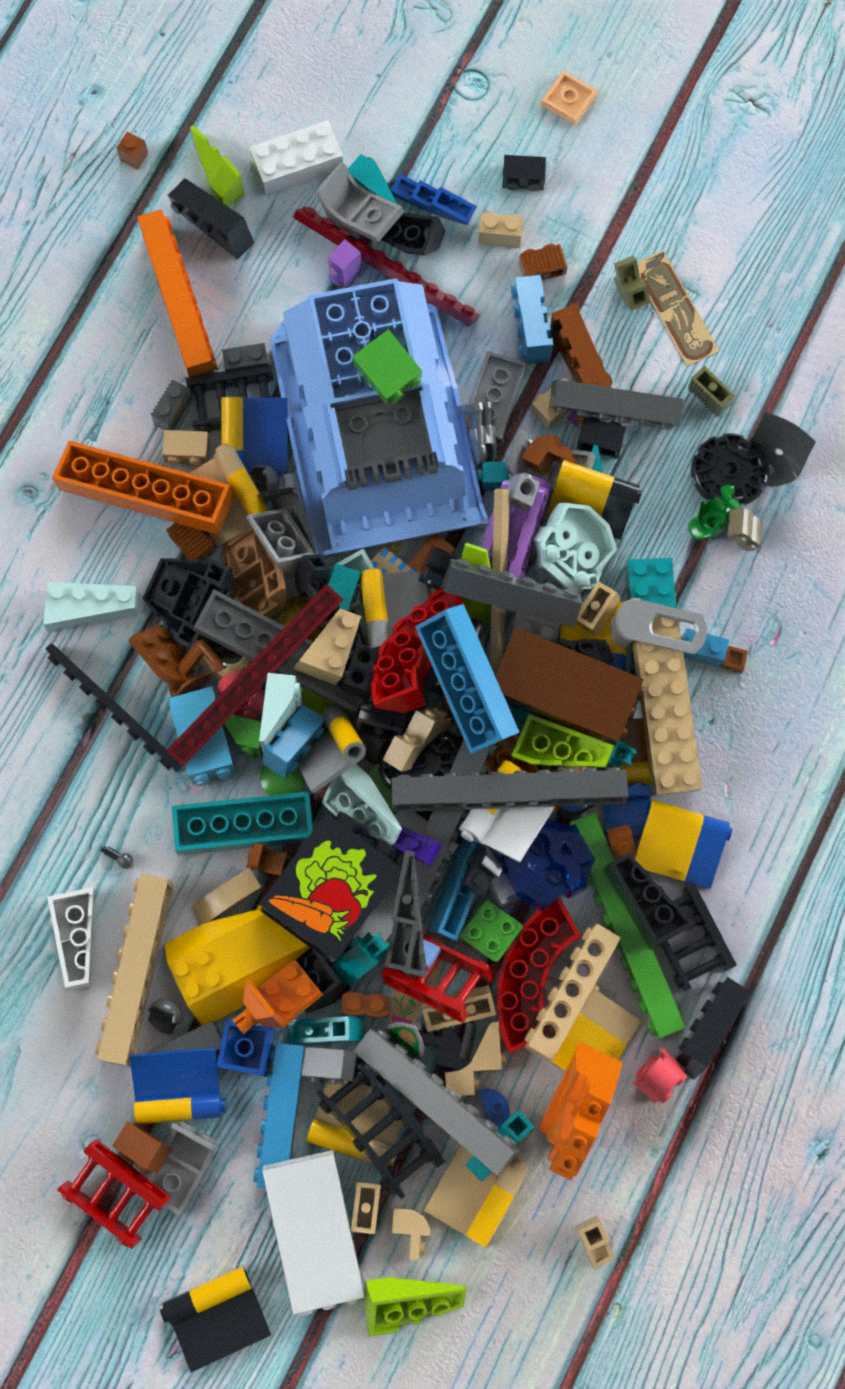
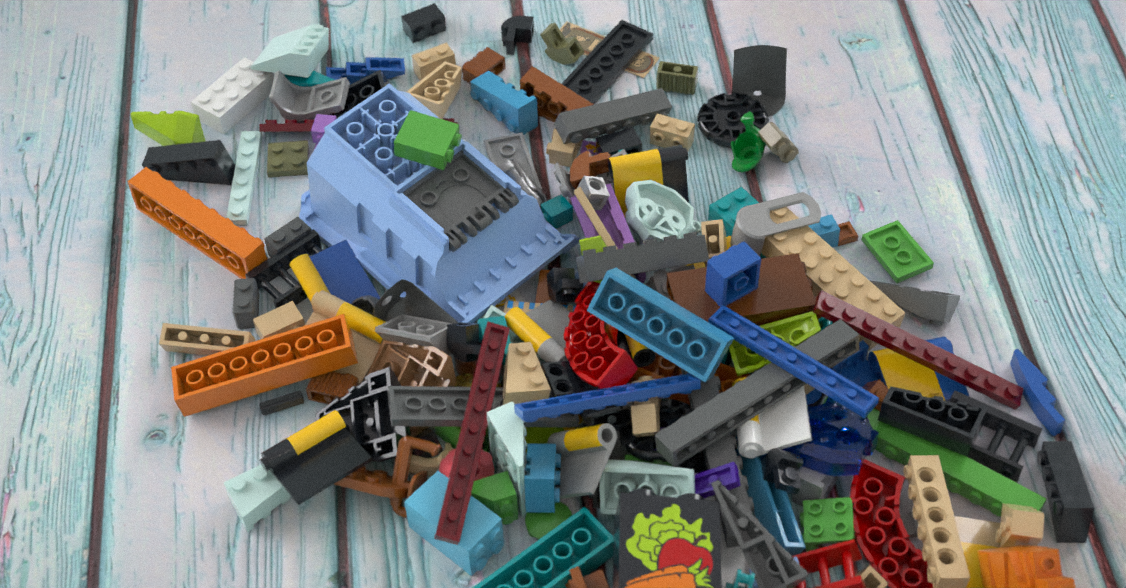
camera: 30 degrees left, 25 degrees down
(105, 702) = (354, 552): black plate -> none
(115, 427) = (201, 339): none -> tan brick
(126, 610) = (315, 457): none -> black door
(132, 150) = (89, 154): dark orange brick -> none
(143, 526) = (281, 403): none -> black axle
(252, 260) = (244, 177): none -> light aqua plate
(302, 261) = (287, 158): none -> olive plate
(376, 141) = (294, 52): none -> light aqua slope
(376, 719) = (600, 398): none -> blue plate
(469, 275) = (438, 88): none -> tan wedge
(551, 786) = (795, 361): none -> blue tile
(559, 672) = (732, 274): none -> blue brick
(604, 235) = (516, 30): none -> black brick
(631, 1044) = (1019, 526): none -> tan wedge
(659, 453) = (671, 131): none -> tan brick
(659, 1076) = (1068, 541): coral brick -> none
(660, 329) = (608, 61): none -> black plate
(684, 830) = (919, 350): none -> dark red plate
(742, 777) = (927, 304): none -> dark grey wedge
(764, 710) = (897, 251): none -> bright green plate
(769, 917) = (1035, 393): none -> blue slope

